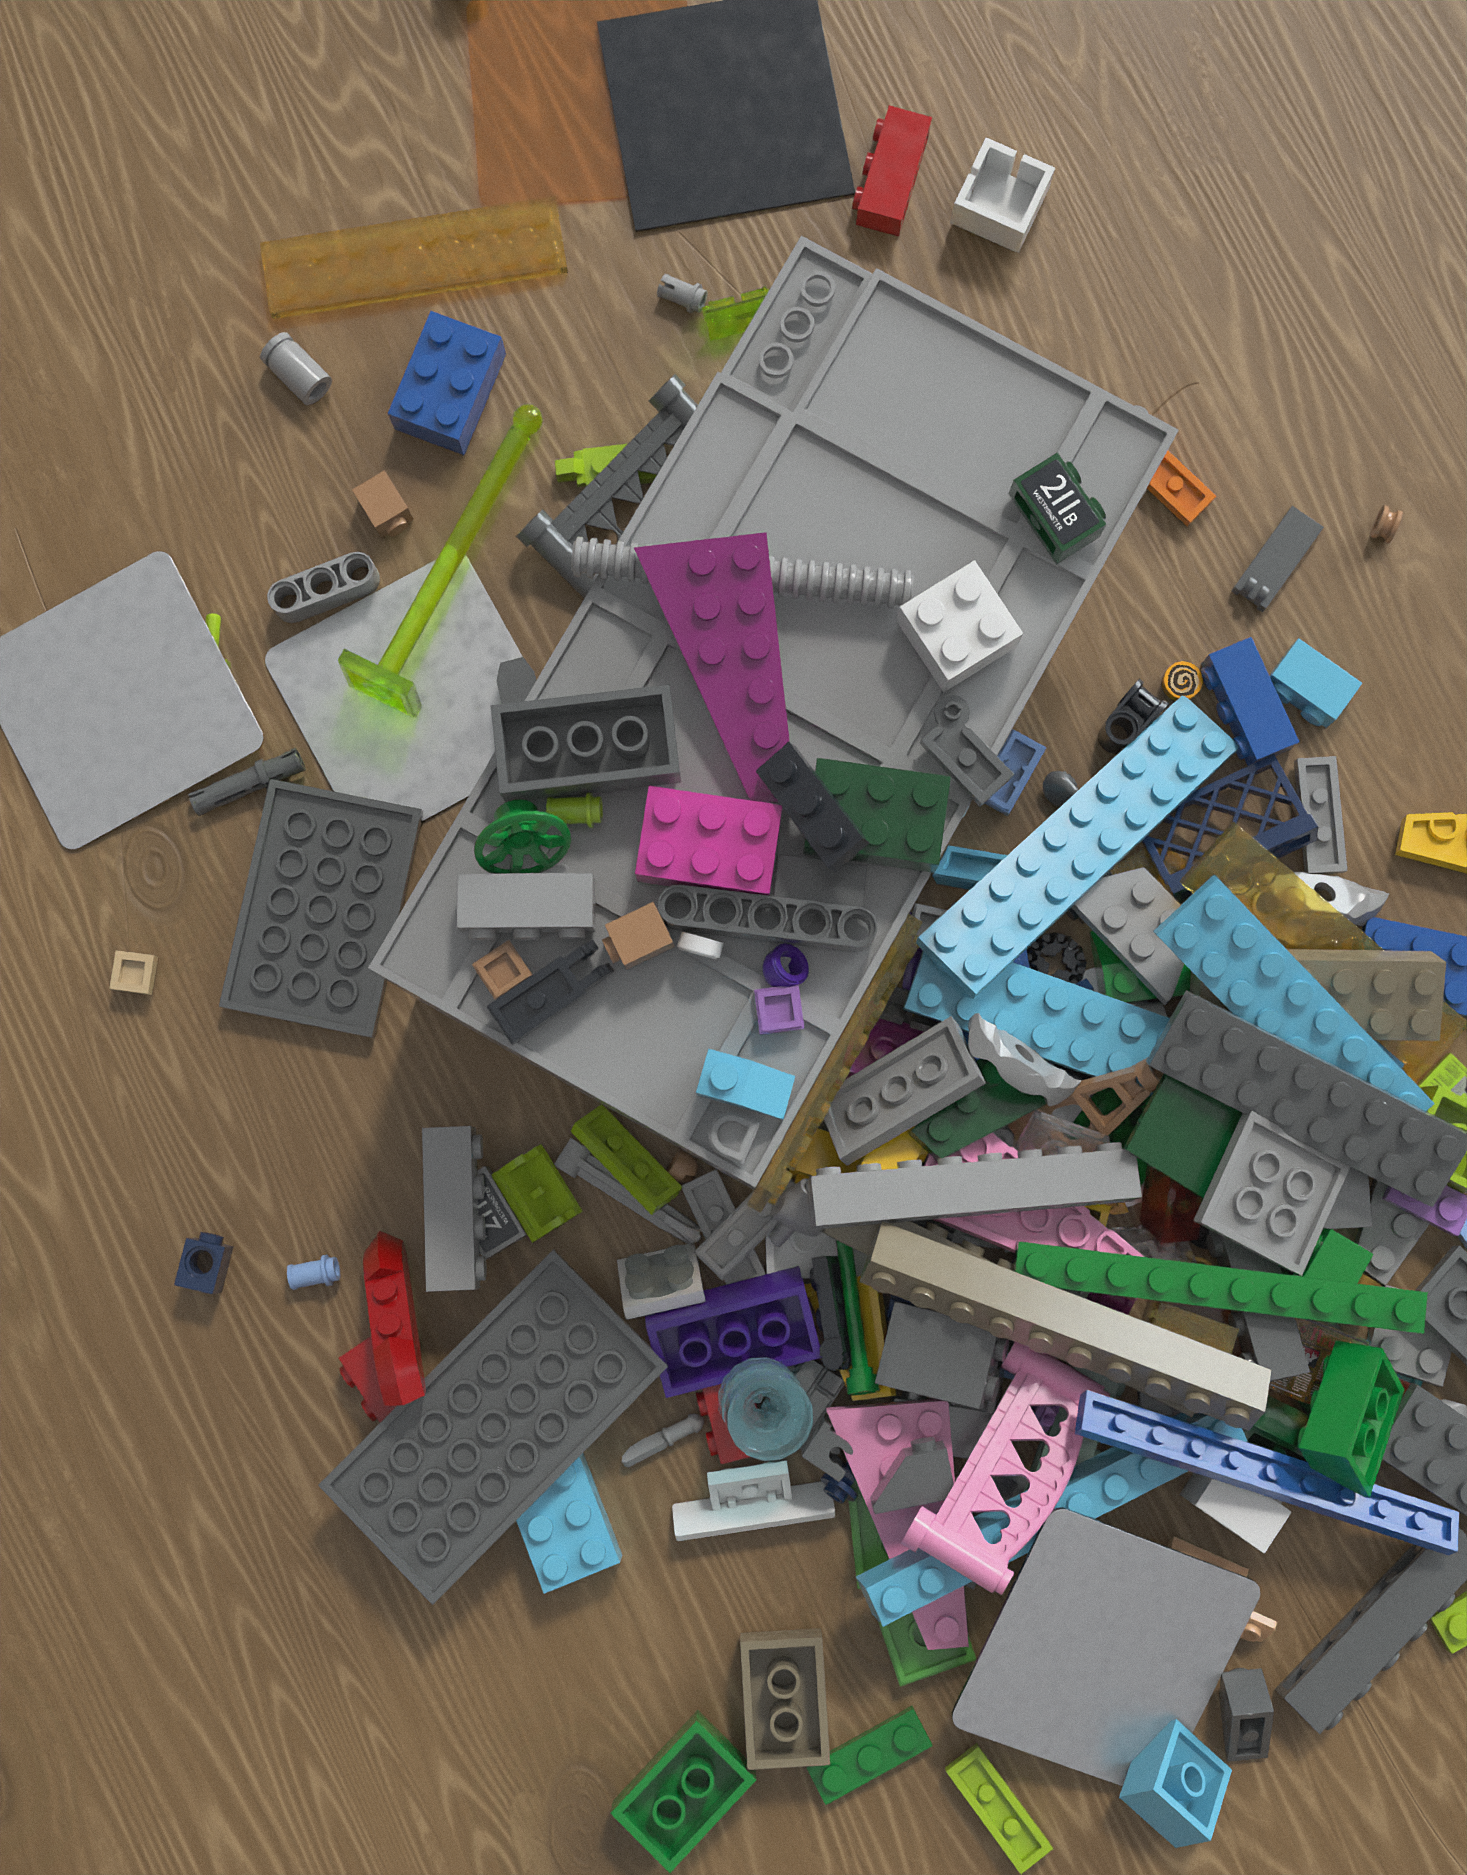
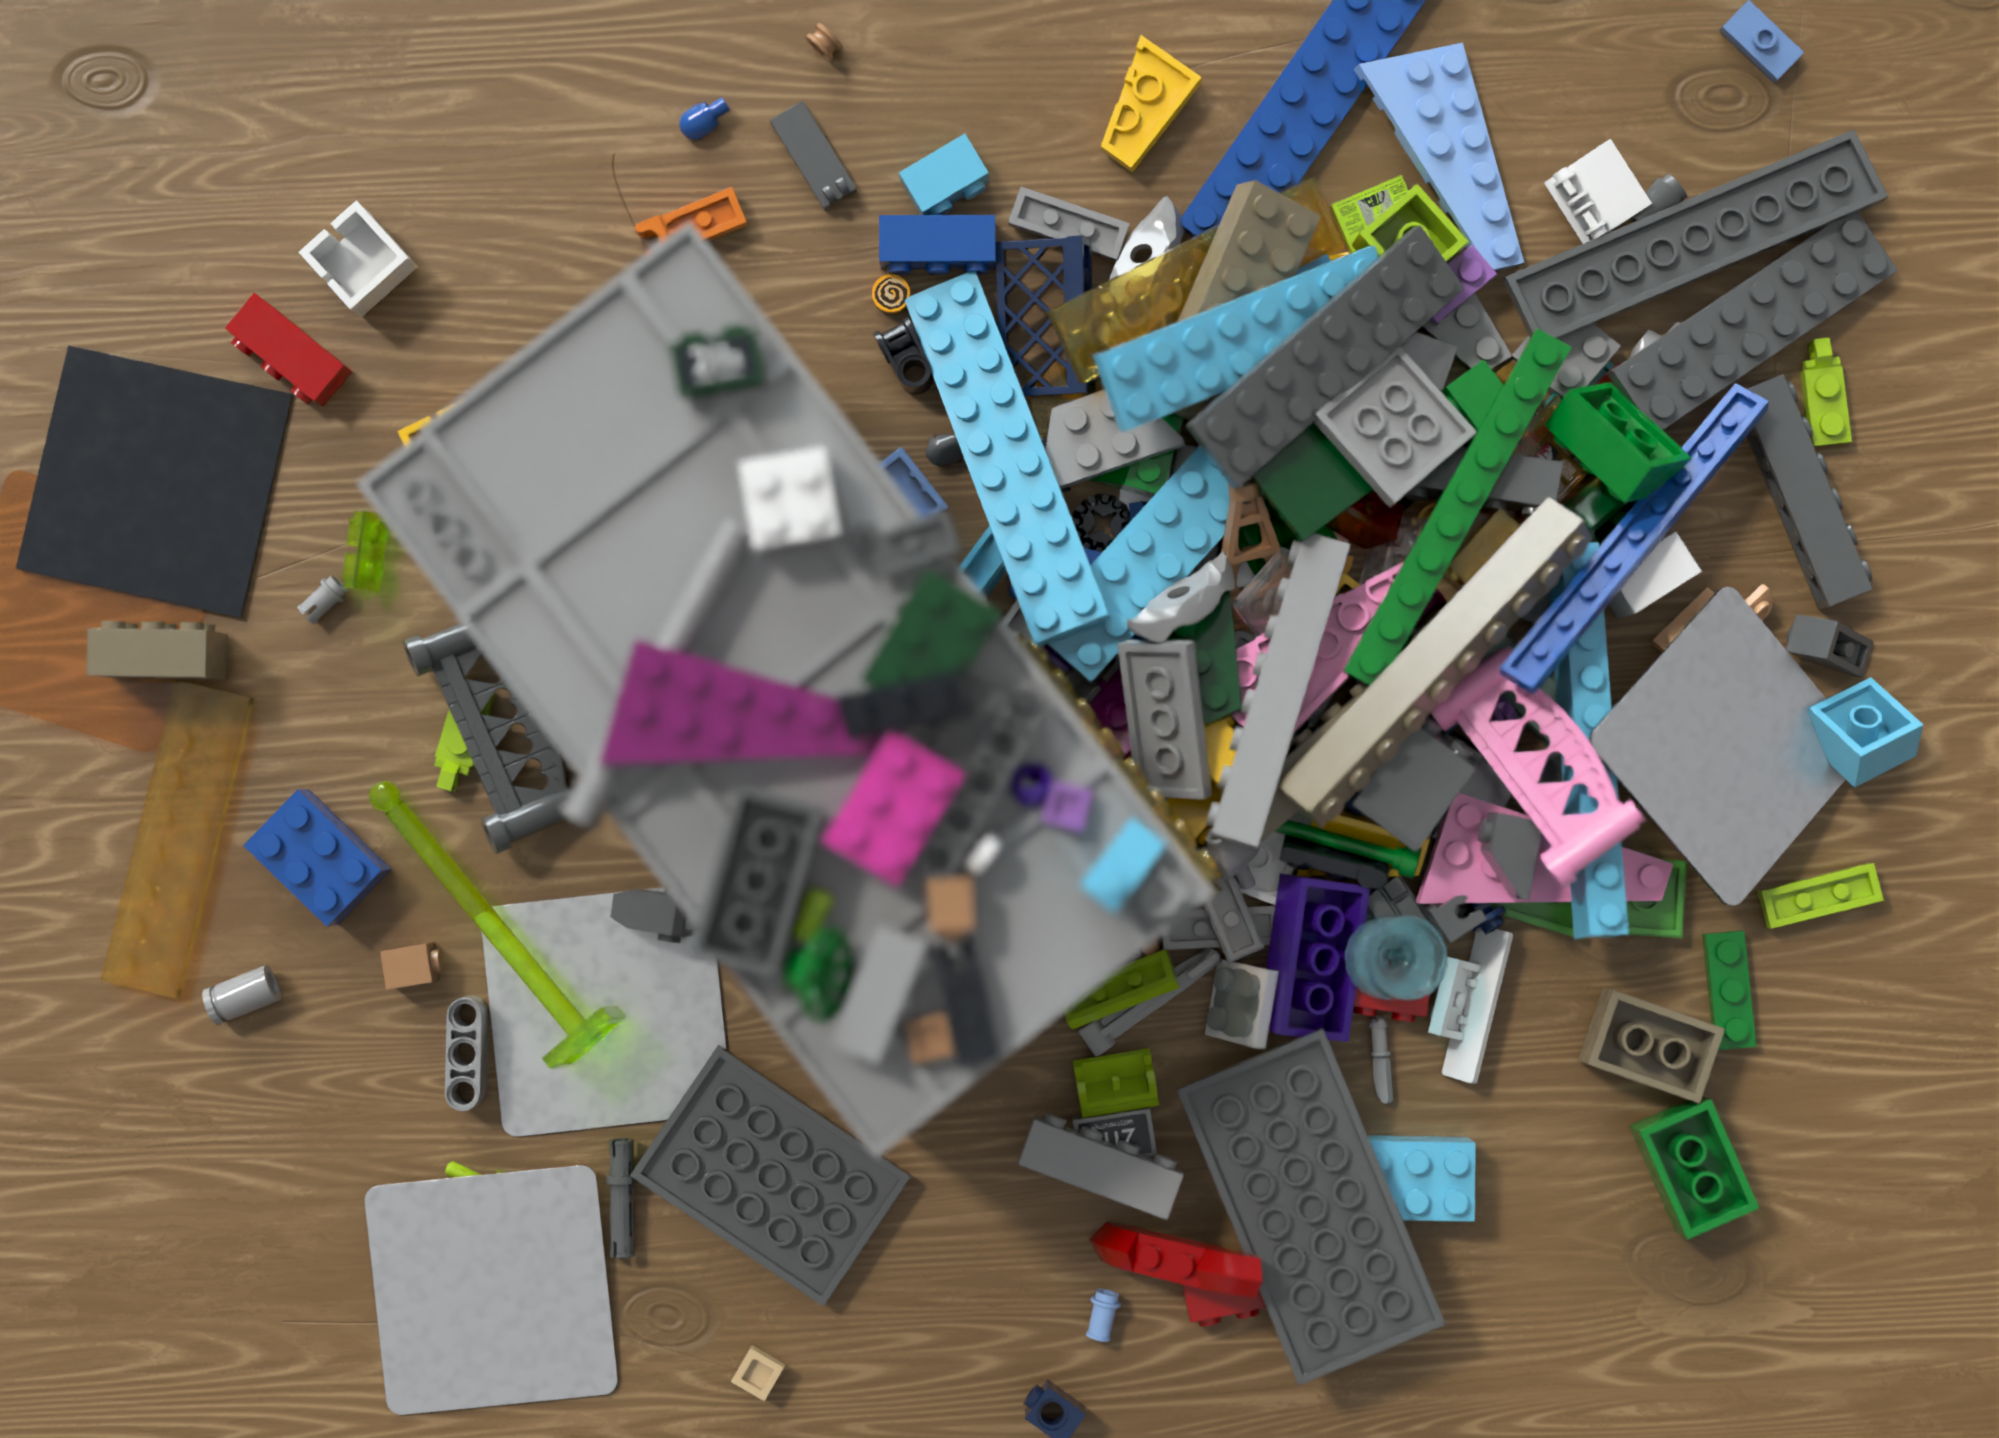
camera: 65 degrees left, 5 degrees up
(574, 165) = (157, 651): none -> dark tan brick
(1265, 445) = (702, 119): none -> blue cylinder

